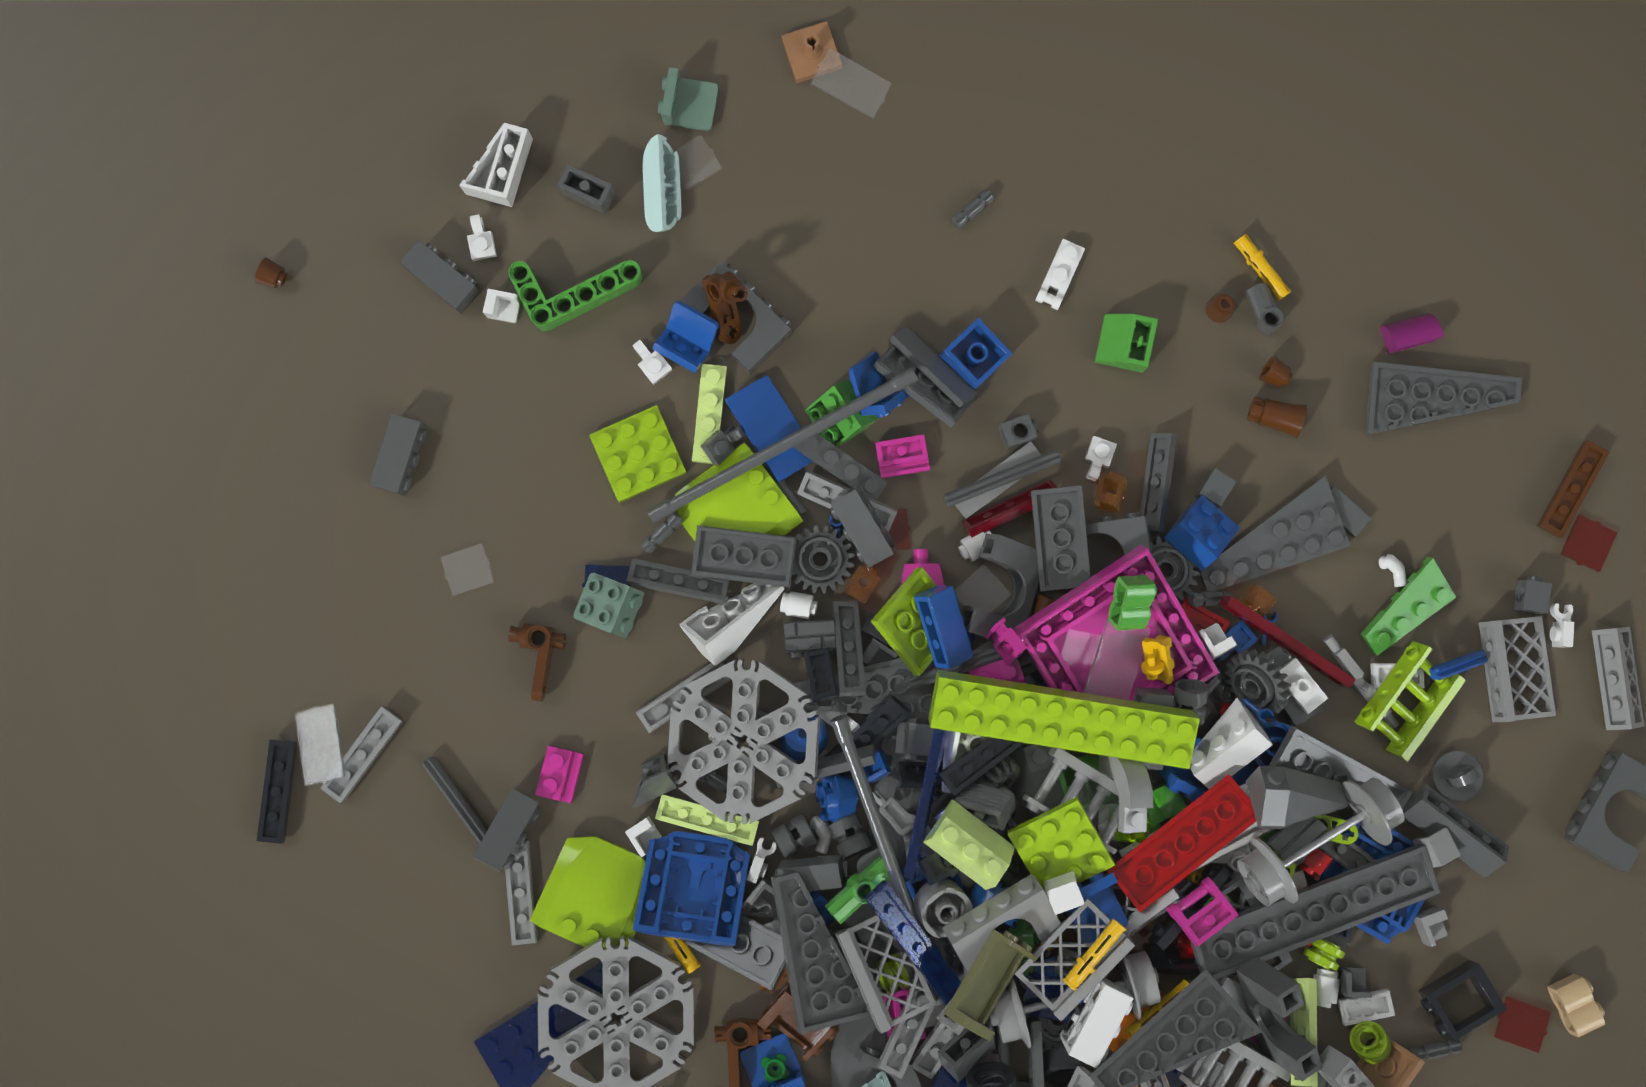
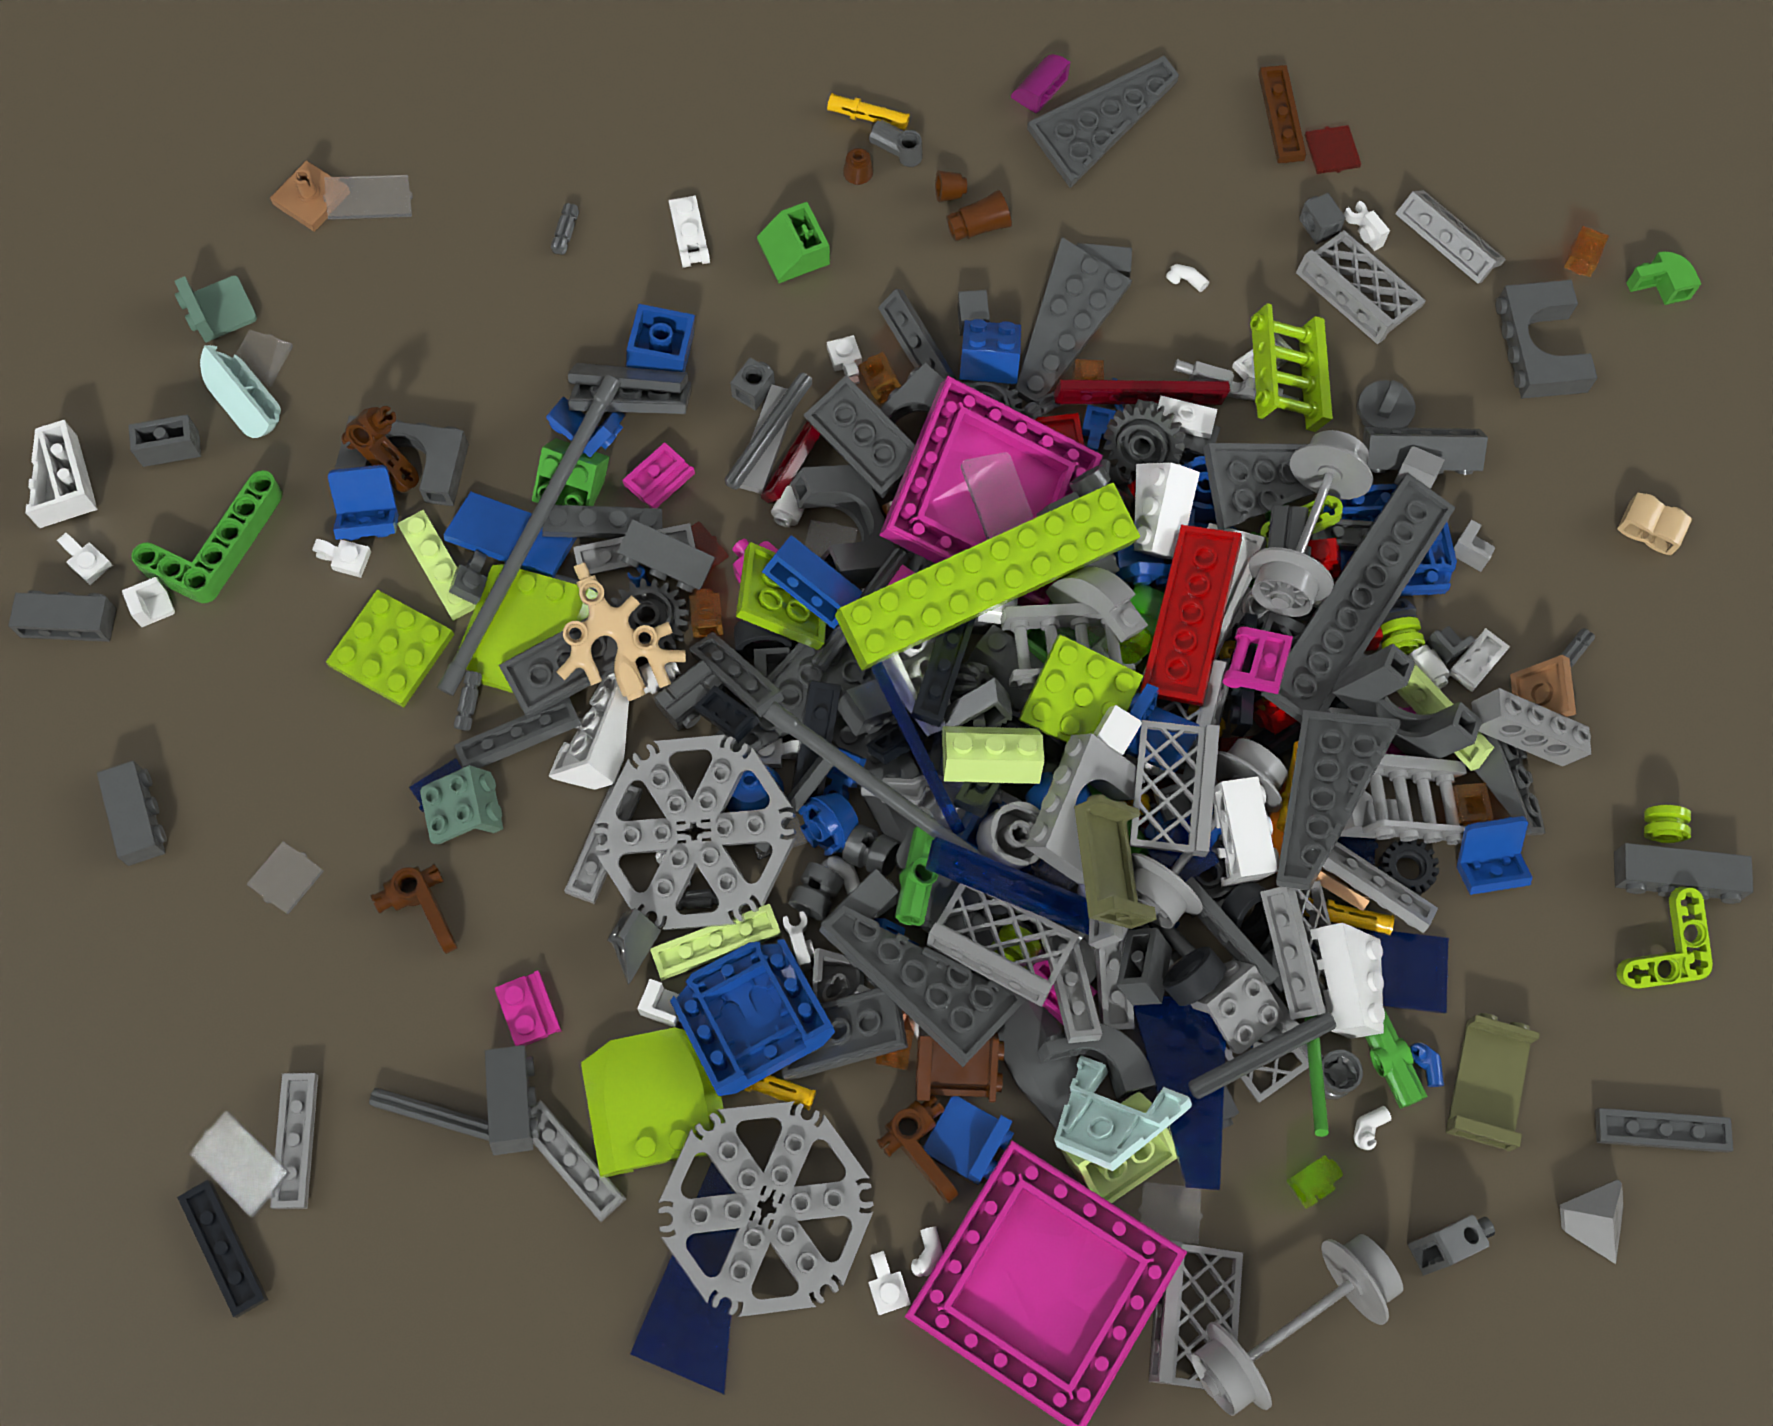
camera: 40 degrees left, 15 degrees down
(770, 1073) = (960, 1134): green plate -> none
(790, 558) = (613, 622): none -> tan plant
(1008, 642) = (881, 548): dark pink plate -> none
(1074, 979) = (1189, 799): yellow pin -> none
(1132, 602) = (970, 430): bright green brick -> none
(1157, 659) = (1036, 474): yellow hips -> none
(1216, 641) = (1082, 433): white panel -> none
(1261, 713) = (1173, 456): blue hand -> none
(1290, 796) = (1249, 502): dark grey wedge -> none
(1376, 1052) = (1509, 677): lime wheel -> none
(1417, 601) = (1226, 297): bright green wing -> none
(1458, 665) = (1307, 311): blue axle -> none
(1483, 986) = (1562, 566): black window -> none
(1522, 1024) = (1625, 577): clear red piece -> none

